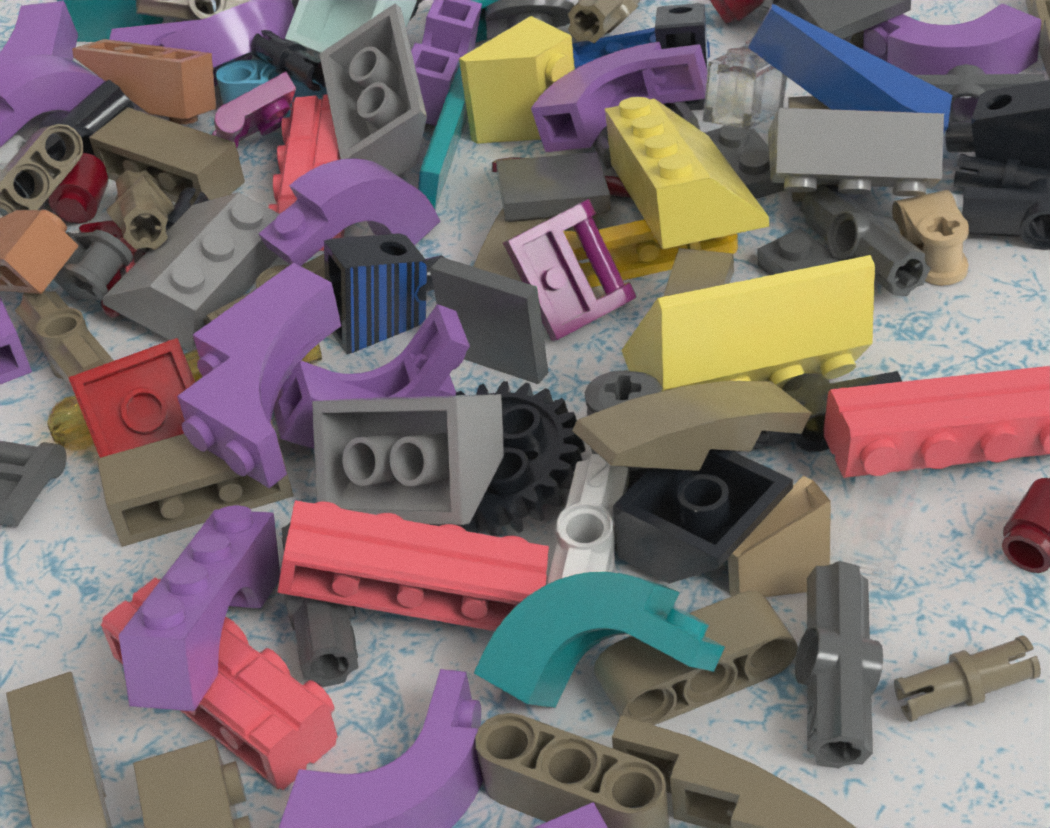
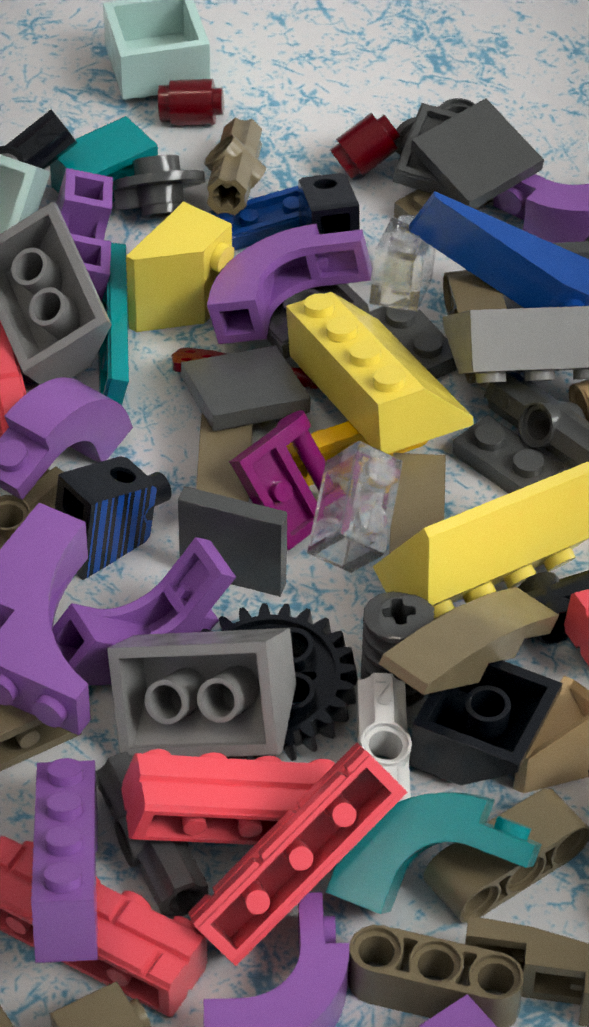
camera: 20 degrees left, 5 degrees up
(439, 624) = (296, 854): none -> coral brick
(624, 292) = (355, 507): none -> clear brick

